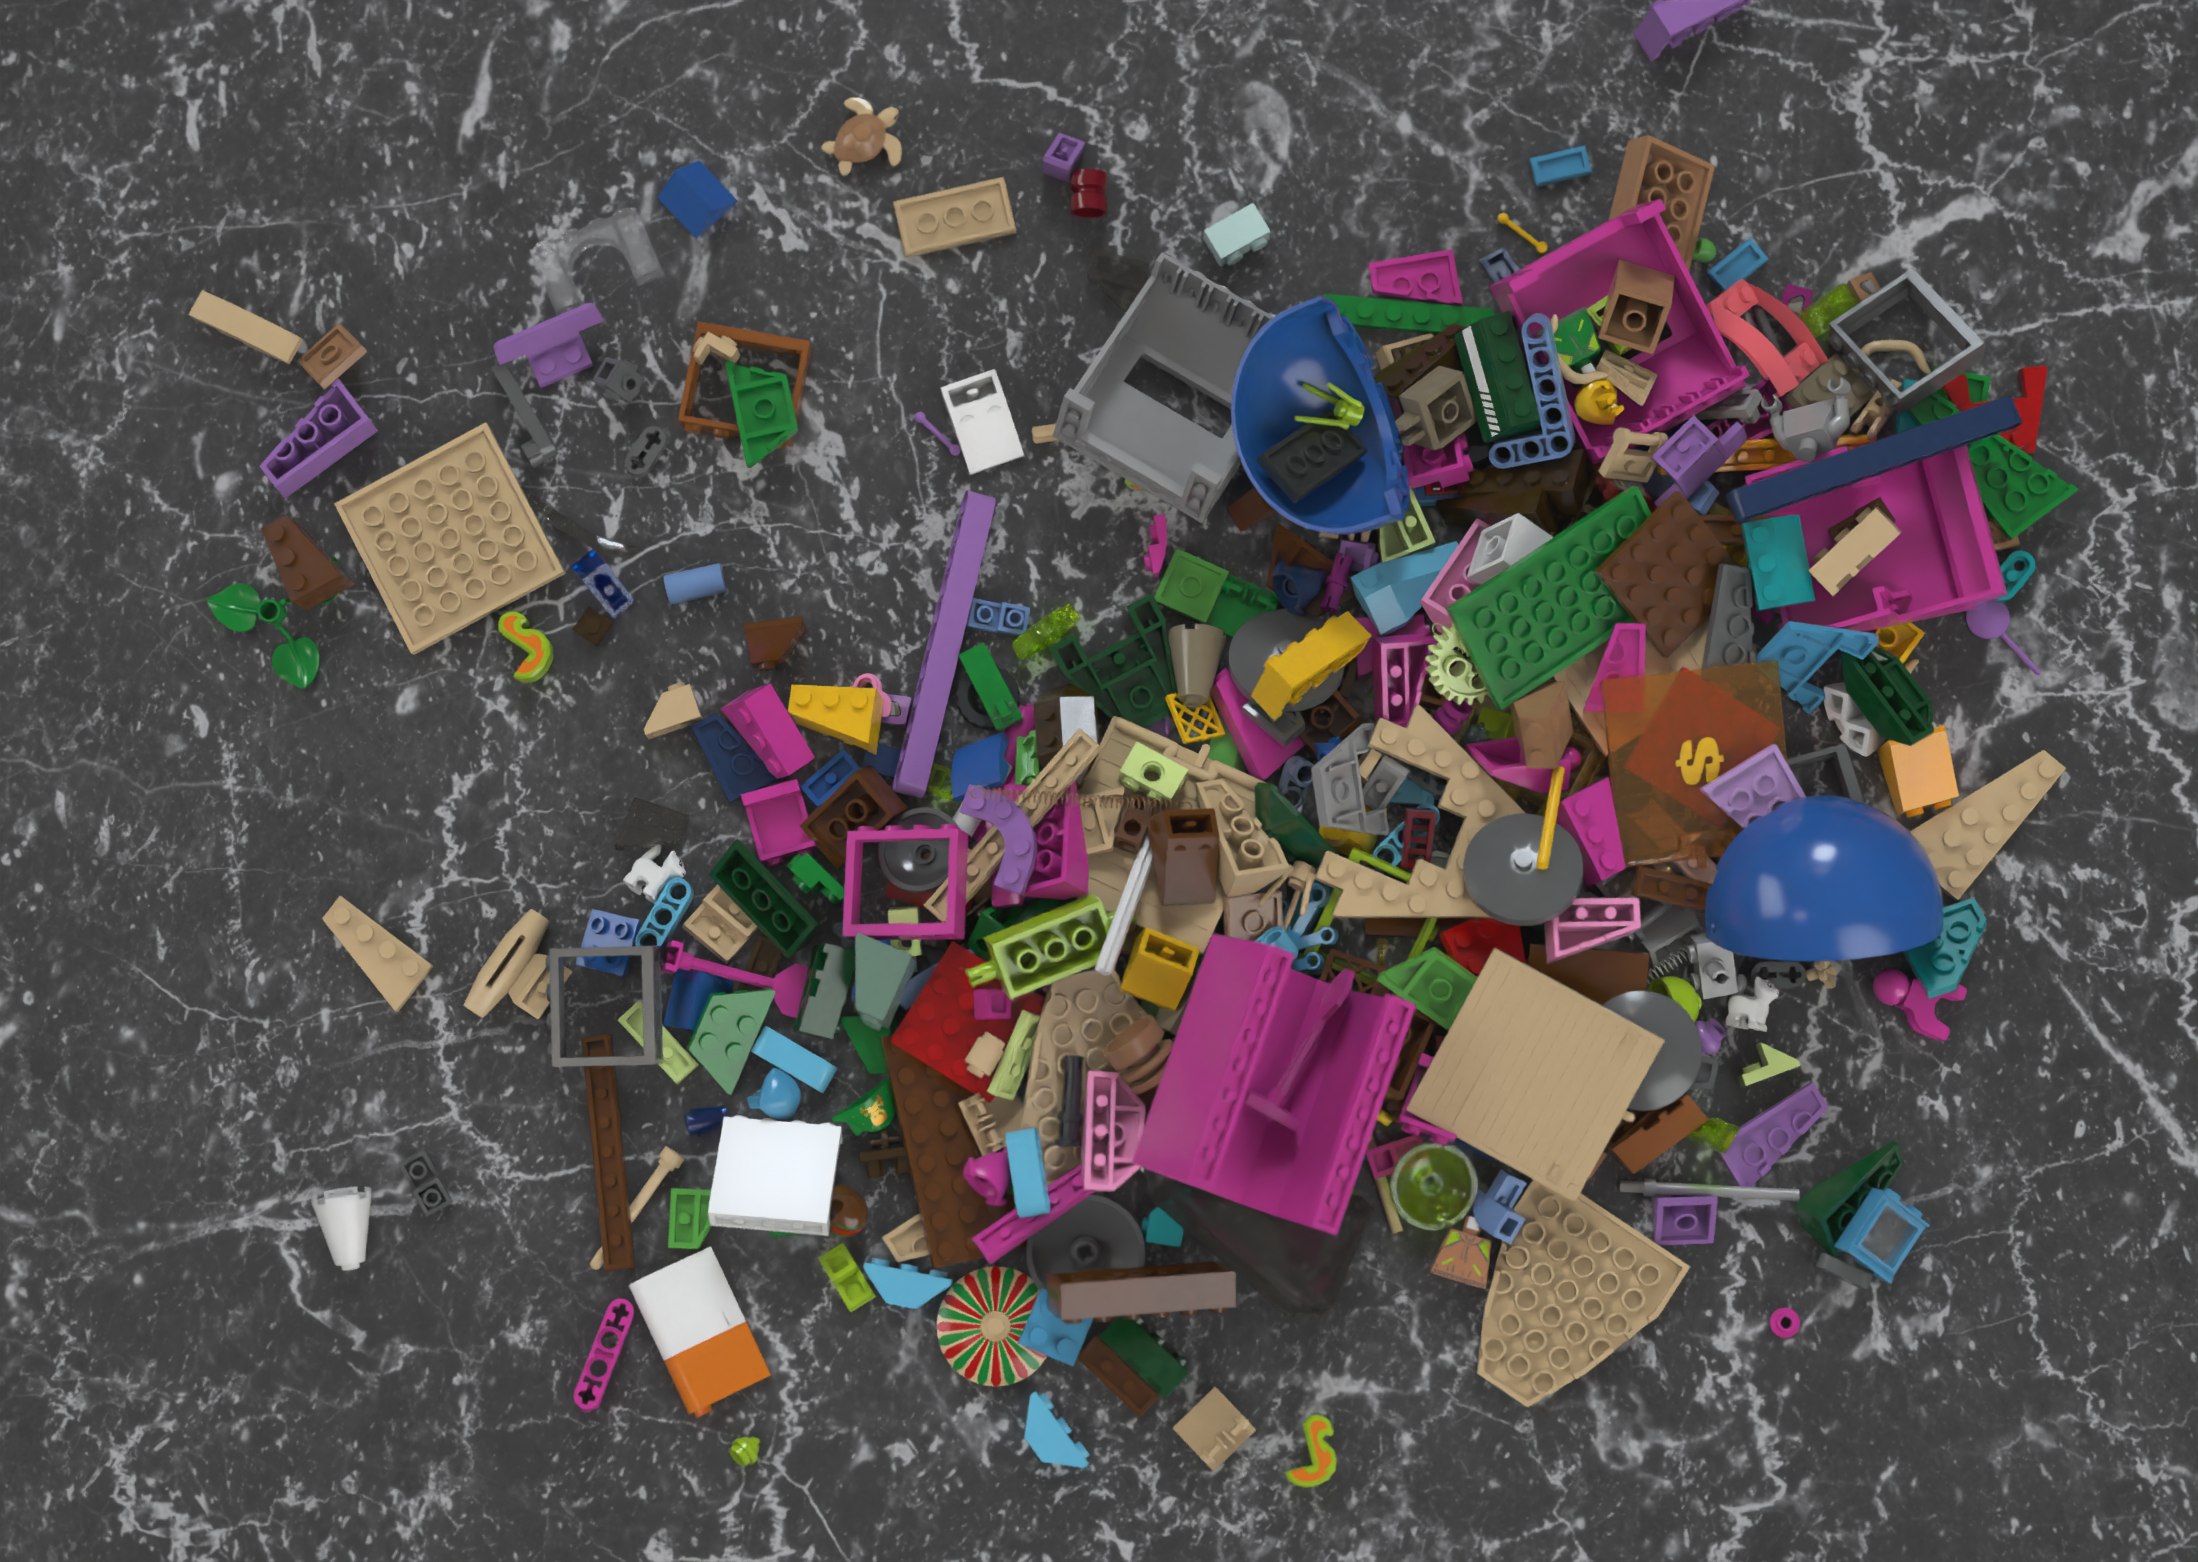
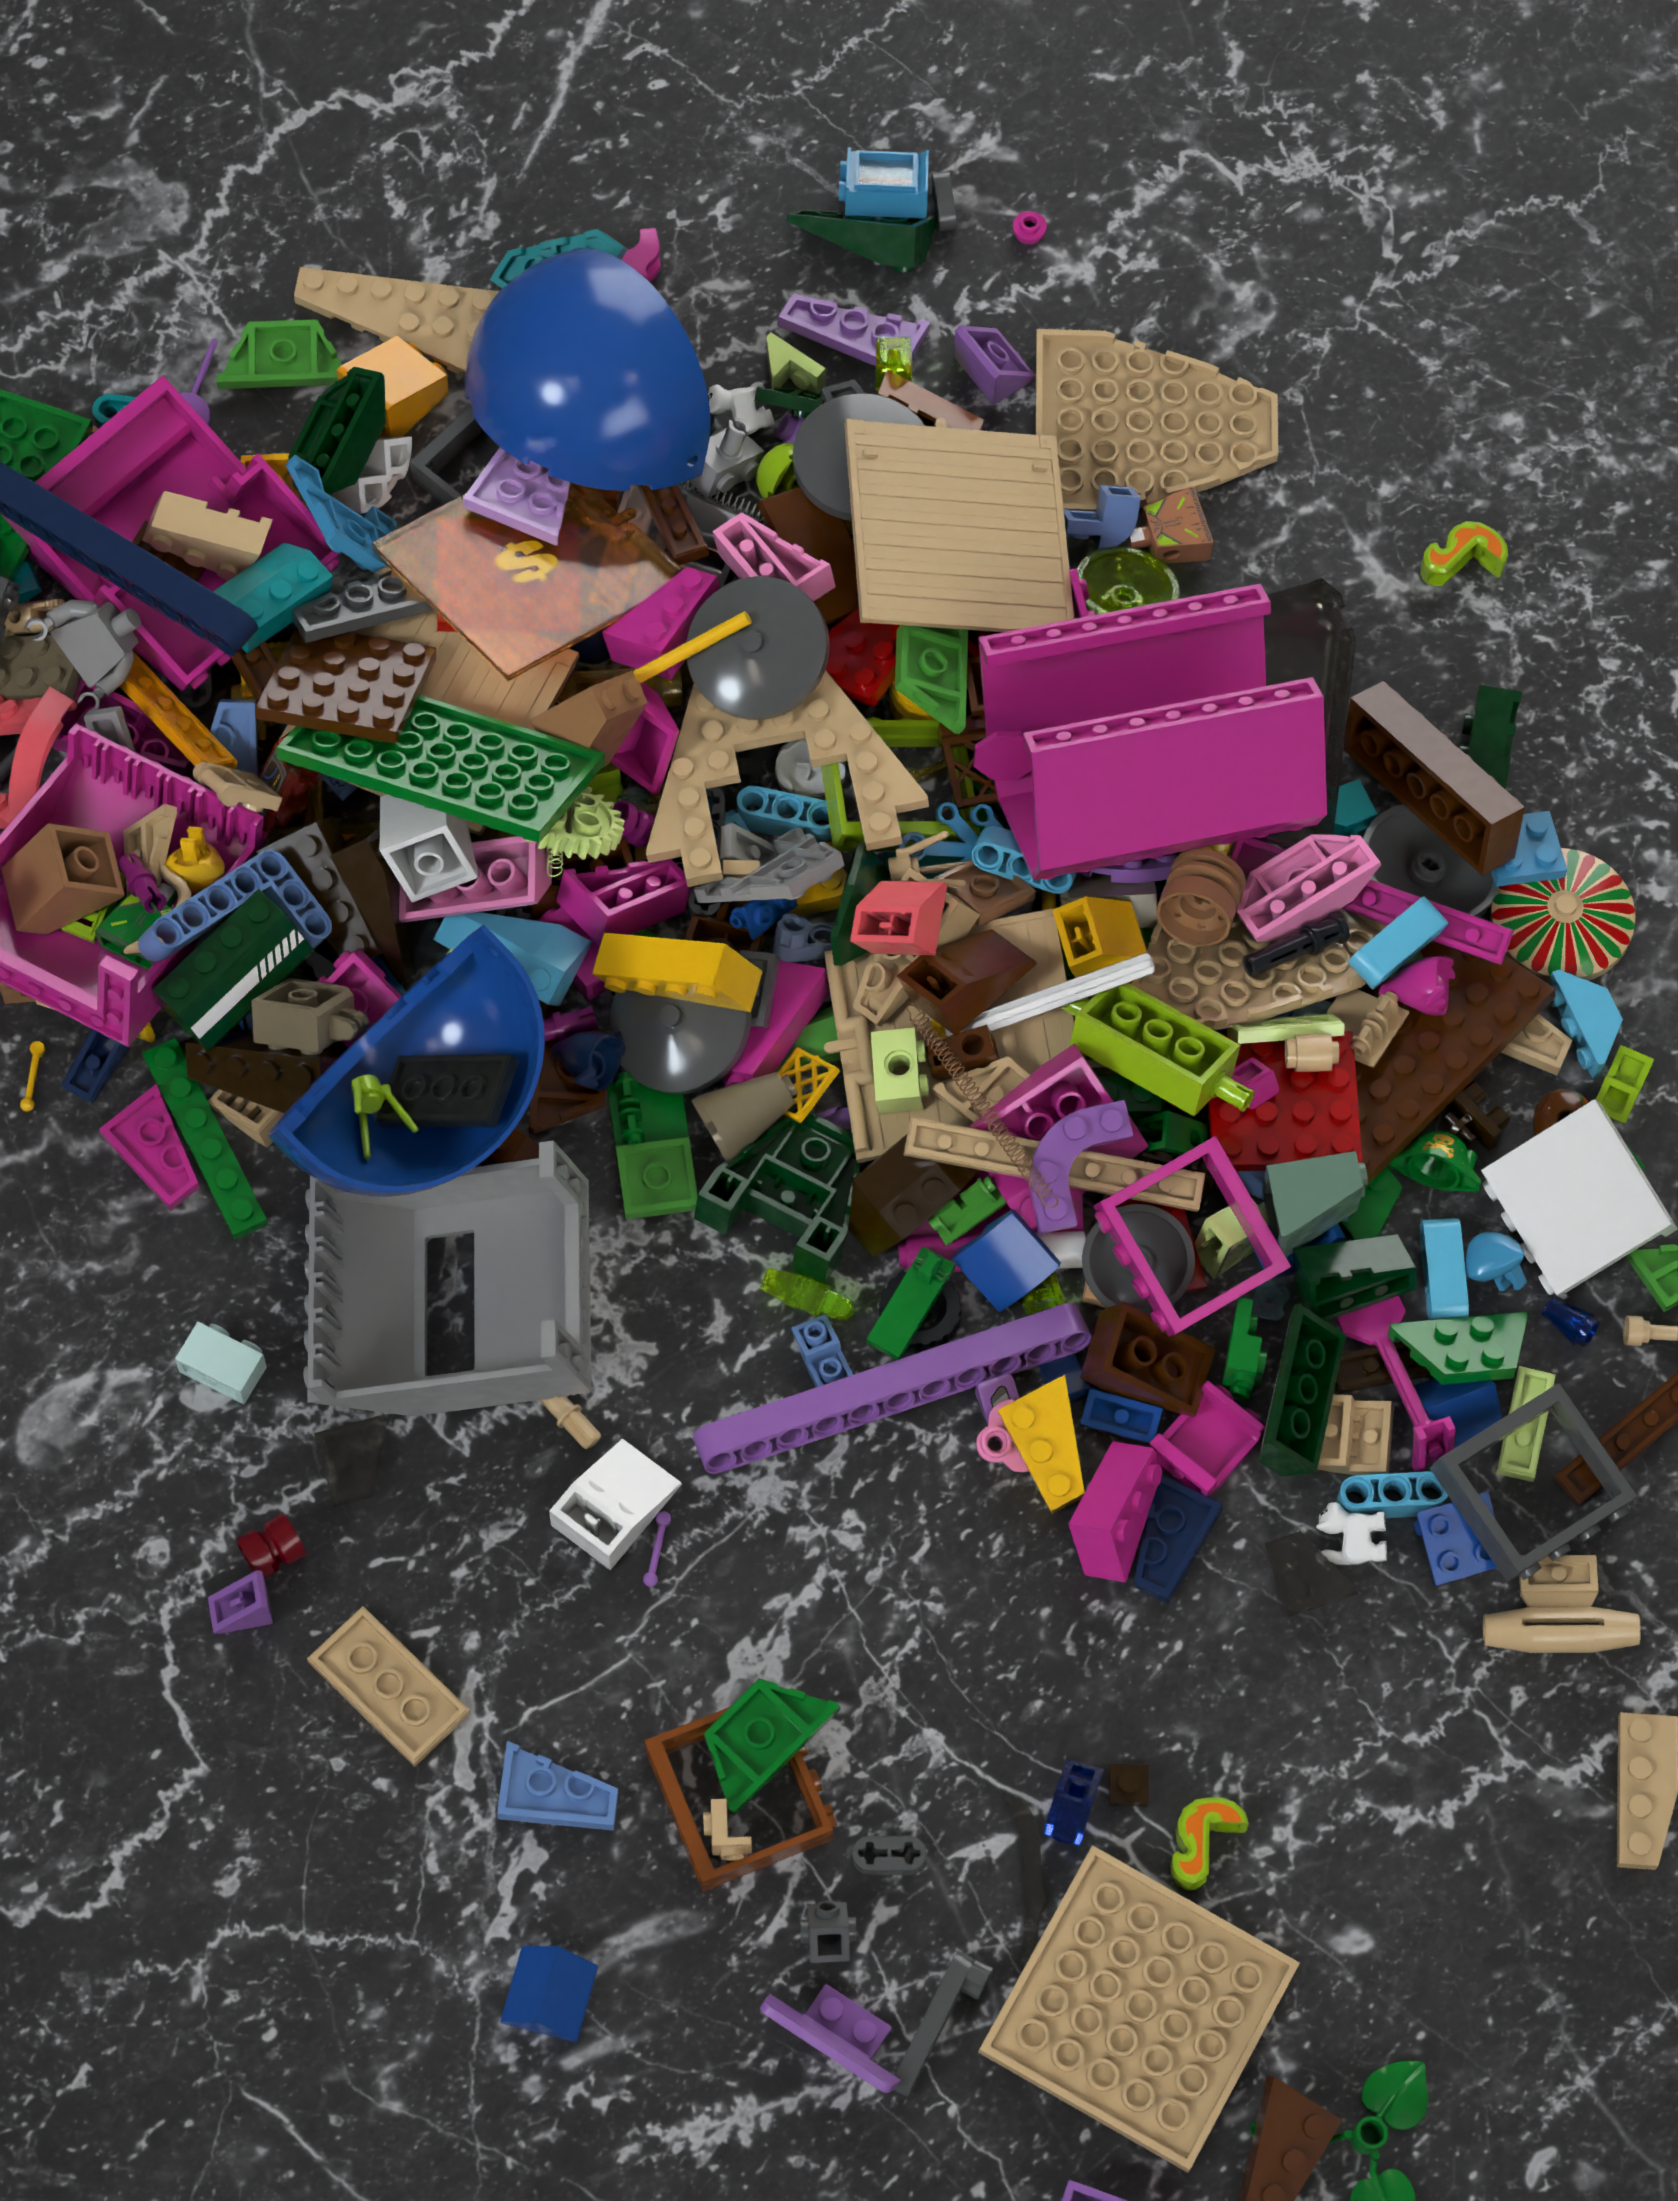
camera: 125 degrees left, 15 degrees down
(557, 257) = (729, 2104): clear arch -> none
(673, 711) = (1164, 1629): tan slope -> none
(694, 583) = (1003, 1703): medium blue brick -> none
(773, 641) = (1013, 1566): reddish brown slope -> none
(819, 272) = (549, 1794): none -> medium blue wing
(864, 136) = (354, 1842): animal -> none
(1050, 1436) = (1630, 798): medium azure slope -> none
(1117, 1376) = (1527, 765): reddish brown tile -> none
(1156, 553) = (644, 1230): dark pink slope -> none
(1214, 1428) = (1507, 658): tan hinge -> none
(1251, 832) = (900, 918): none -> coral slope
(1430, 816) = (764, 803): dark red slope -> none
(1598, 352) = (141, 883): none -> magenta pin
(1622, 658) = (475, 681): dark pink wing -> none
(1650, 1187) = (982, 405): light grey bar -> none
(1695, 455) = (201, 735): medium lavender plate -> none
(1731, 1047) = (799, 400): none -> dark green wing
(1995, 712) = (281, 356): none -> bright green wing

